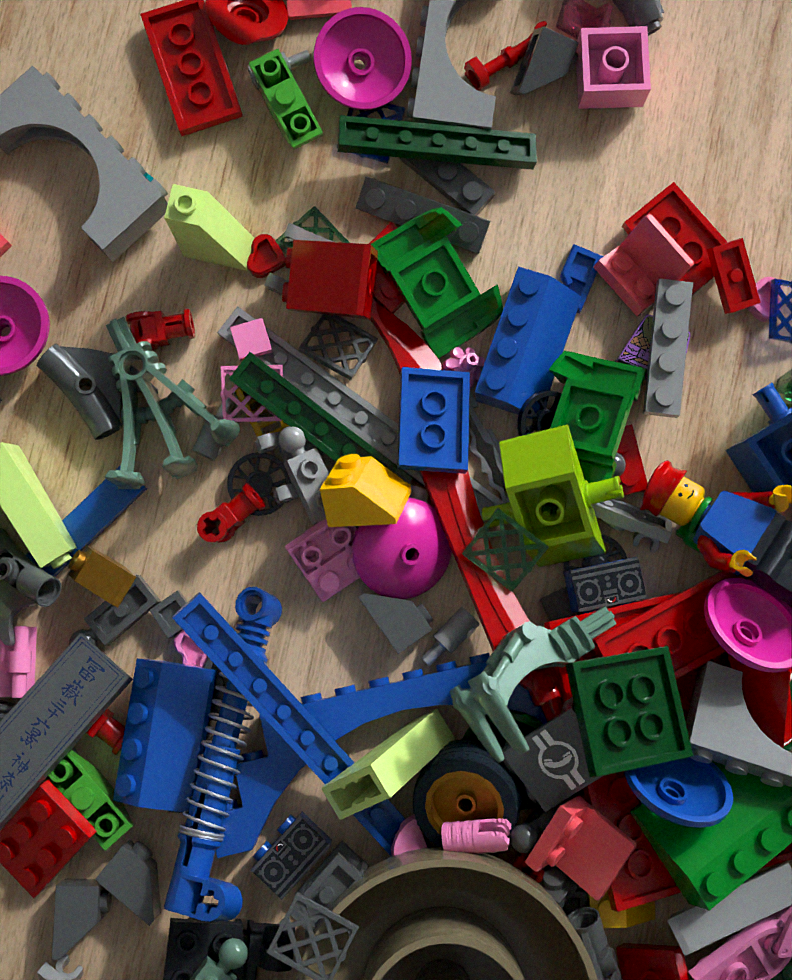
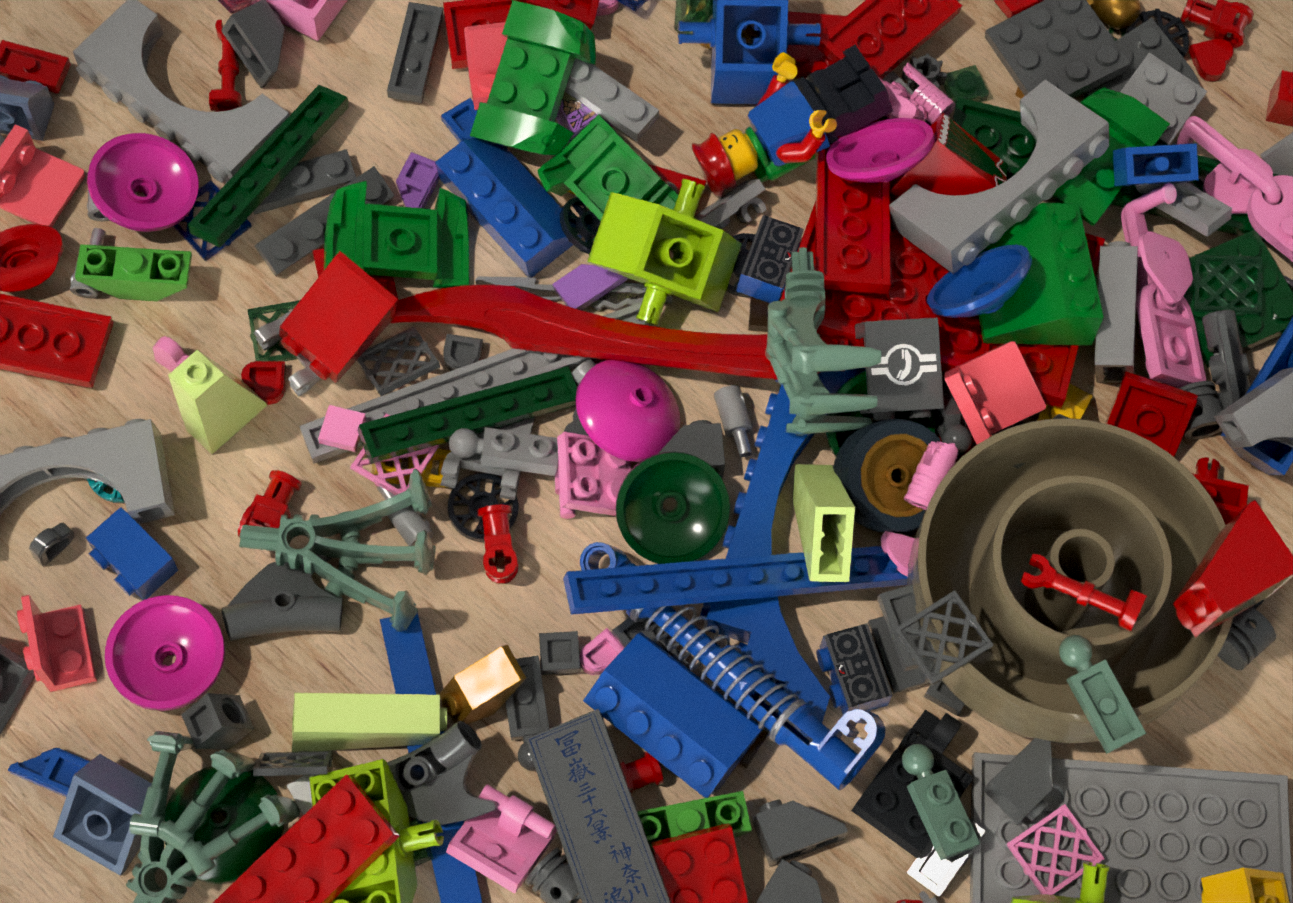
camera: 65 degrees left, 15 degrees down
(40, 189) = (51, 543): none -> dark grey tile
(63, 252) = (131, 554): none -> blue brick
(237, 178) = (168, 353): none -> bright pink tile
(326, 644) = (677, 533): none -> dark green dish
(363, 493) = (559, 401): yellow slope -> none
(378, 388) = (461, 351): none -> dark grey tile
(433, 420) = (529, 311): blue plate -> none
(465, 362) = (492, 266): bright pink plant -> none
(485, 446) = (586, 285): none -> medium lavender tile
(501, 263) = (417, 181): none -> medium lavender tile
(527, 566) = (661, 321): clear green window -> none
(616, 188) = (415, 52): none -> dark grey plate
(628, 711) = (894, 279): dark green plate -> none
(638, 298) = (533, 79): none -> green piece

